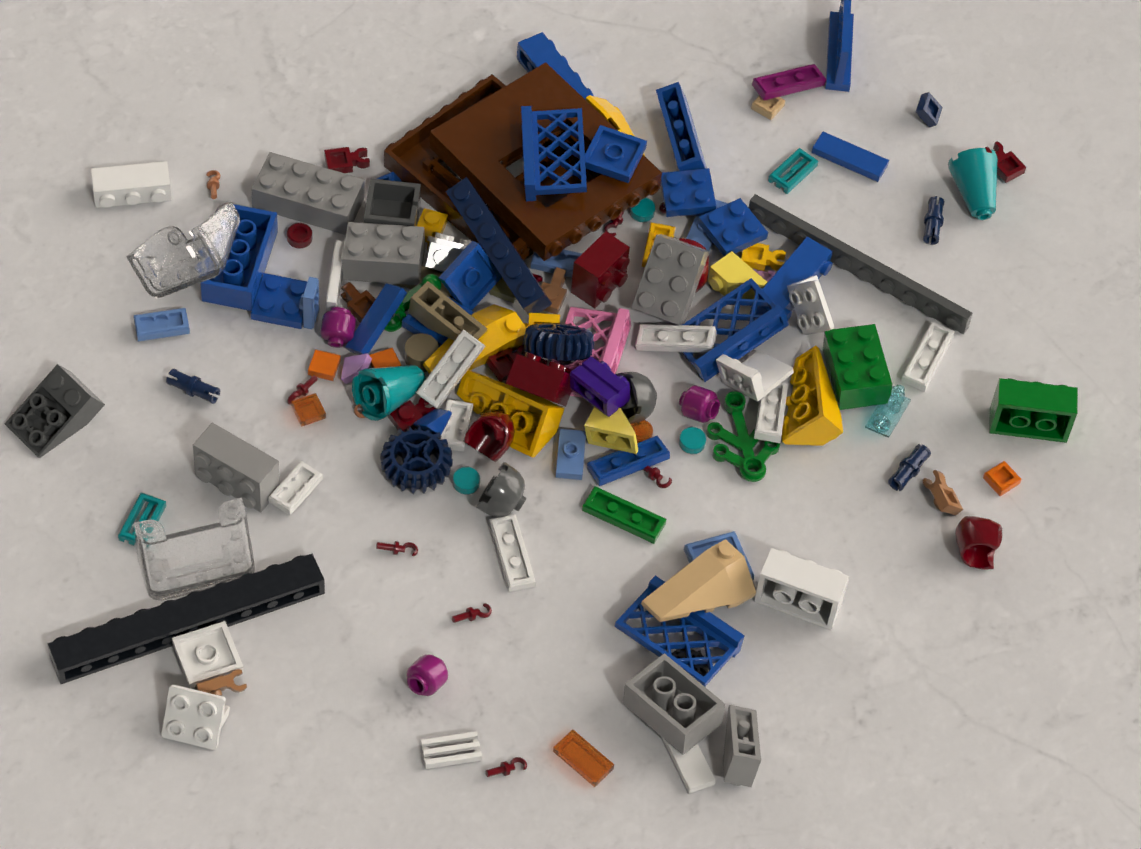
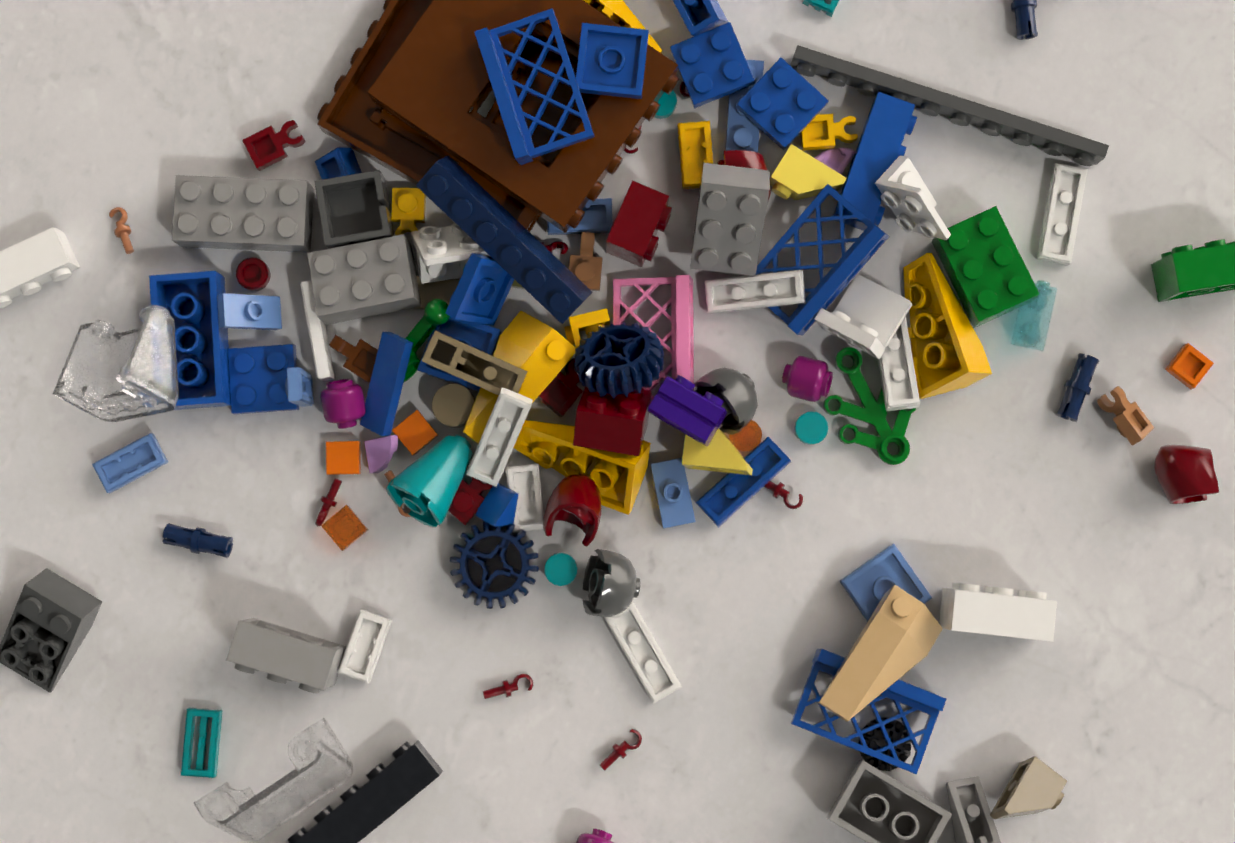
camera: 10 degrees left, 30 degrees up
(290, 250) = (249, 311): none -> medium blue plate
(624, 514) = (758, 558): green tile -> none
(793, 722) = (1030, 790): none -> slope

